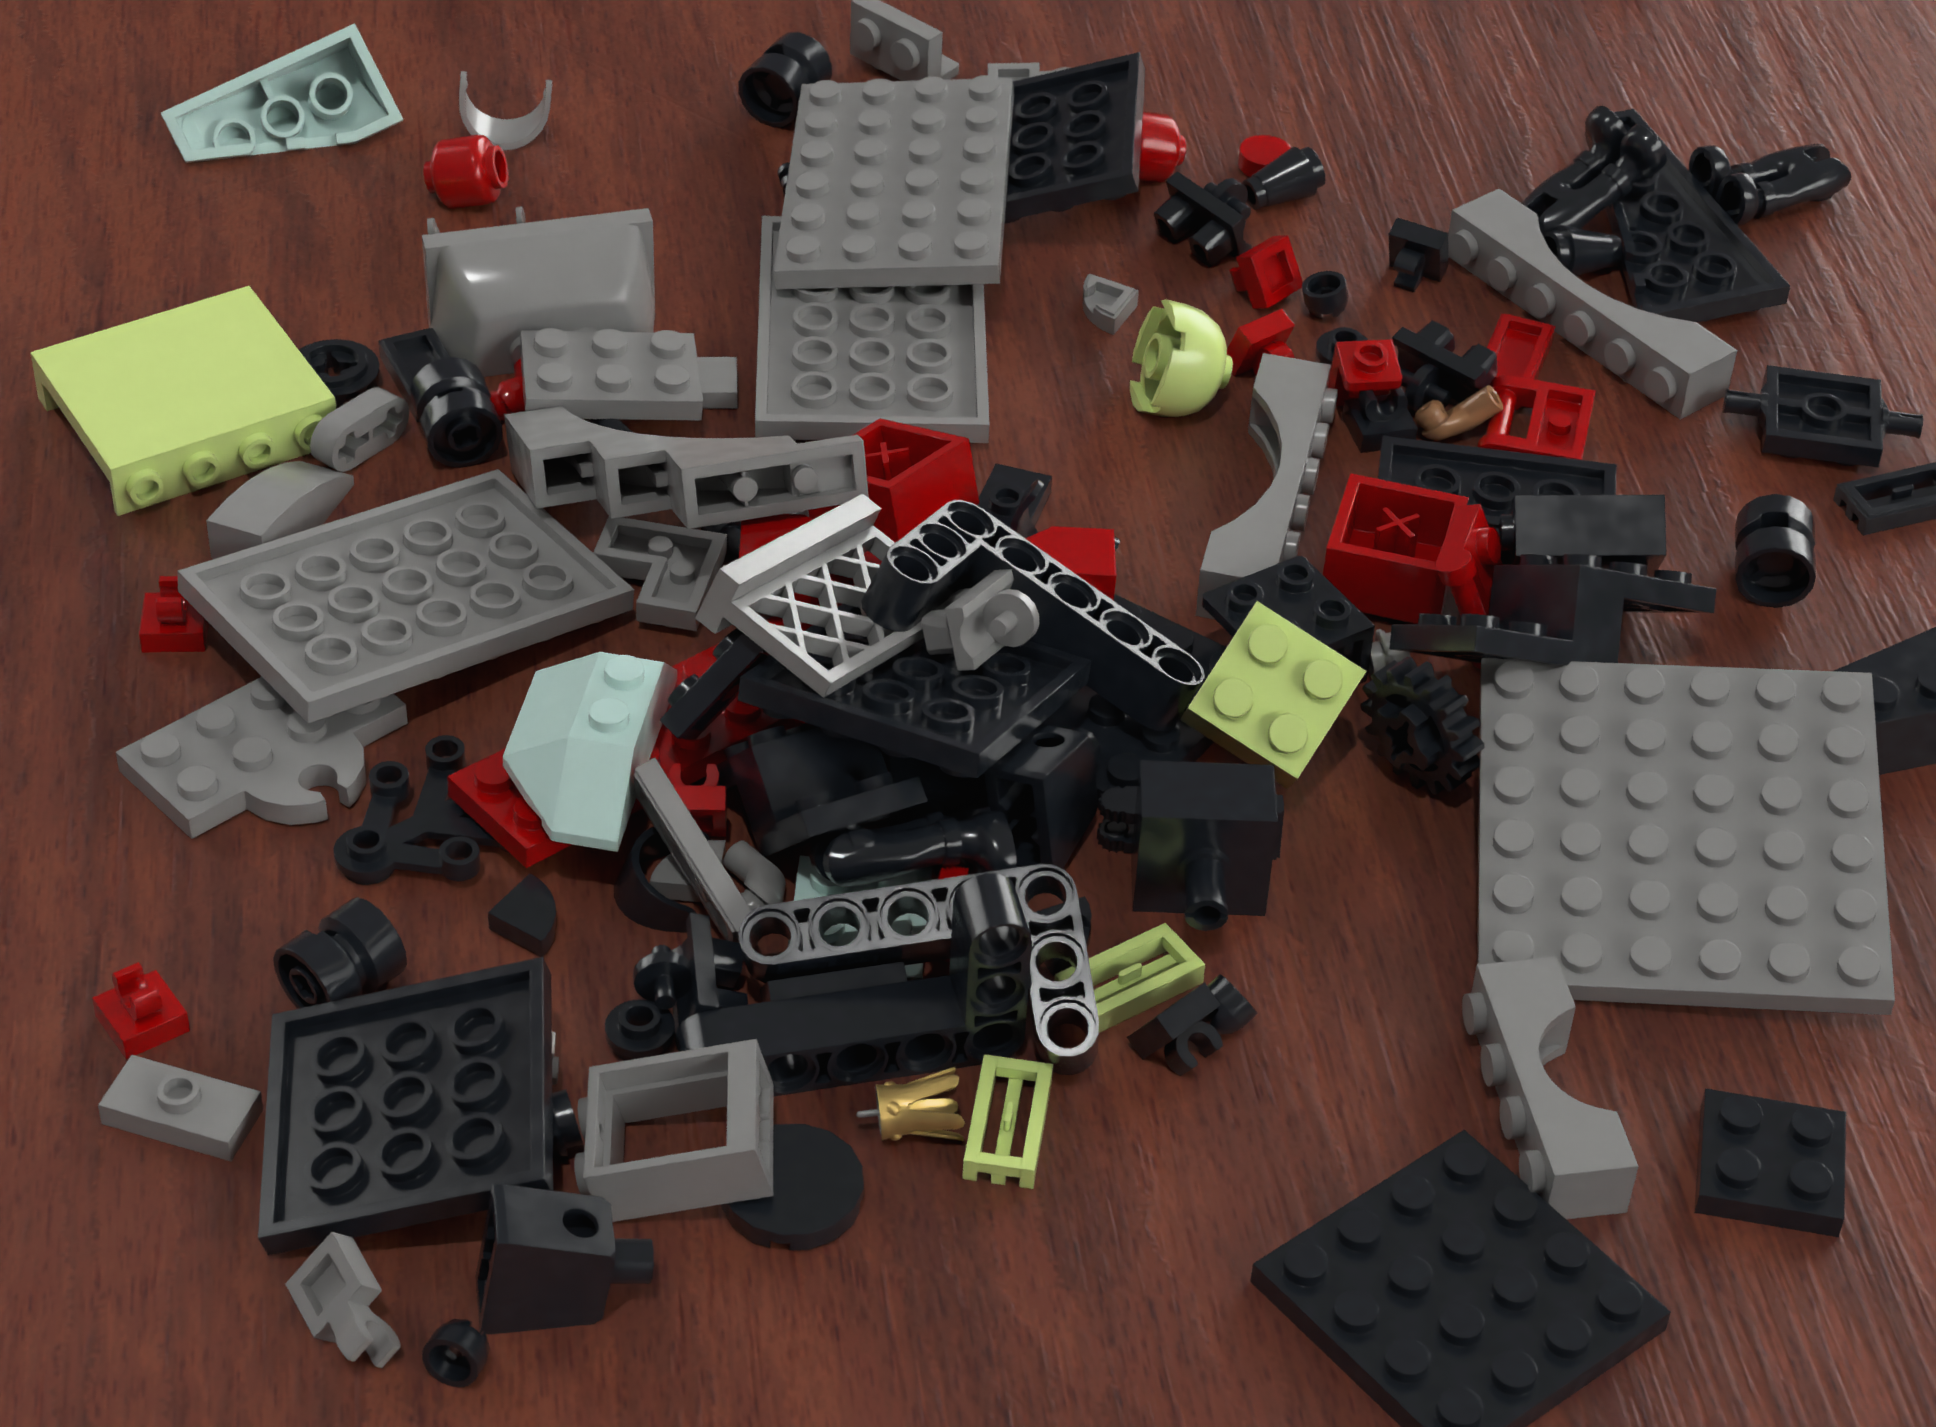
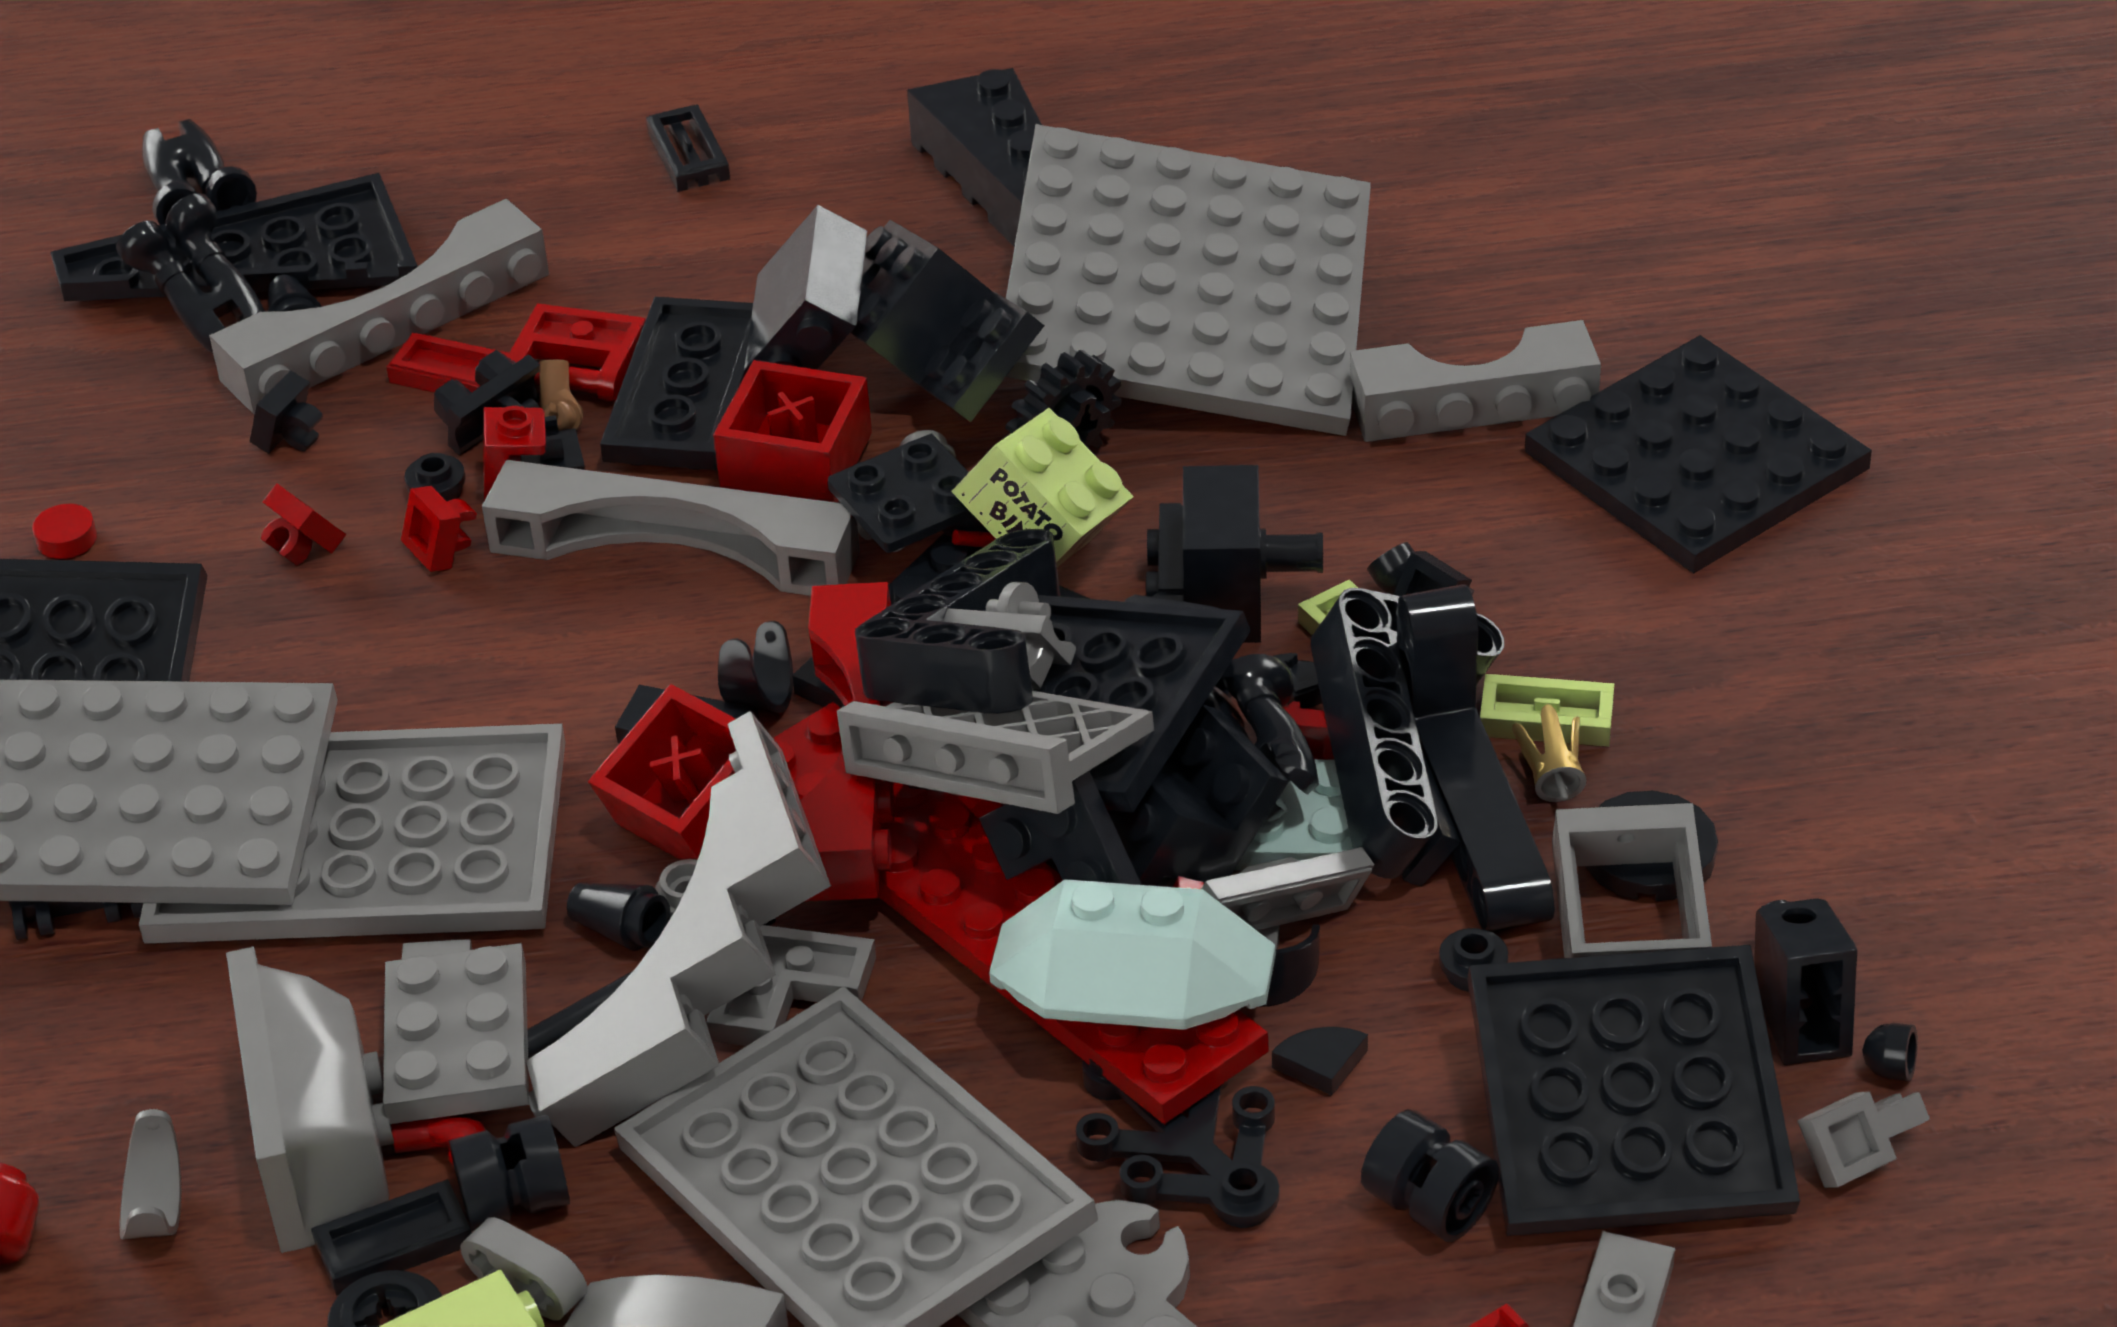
camera: 85 degrees left, 0 degrees up
(690, 973) = (1417, 910): black hips -> none
(1108, 302) = (320, 656): light grey tile -> none
(1180, 361) = (475, 580): yellowish green cylinder -> none
(1214, 212) = (217, 549): black hips -> none
(1286, 179) = (123, 507): black cone -> none
(1325, 293) = (345, 480): black hinge -> none
(1469, 560) = (881, 357): red plate -> none
(1771, 1162) = (1522, 280): black plate -> none
(1775, 551) = (778, 206): black wheel -> none
(1822, 416) = (575, 175): black plate -> none

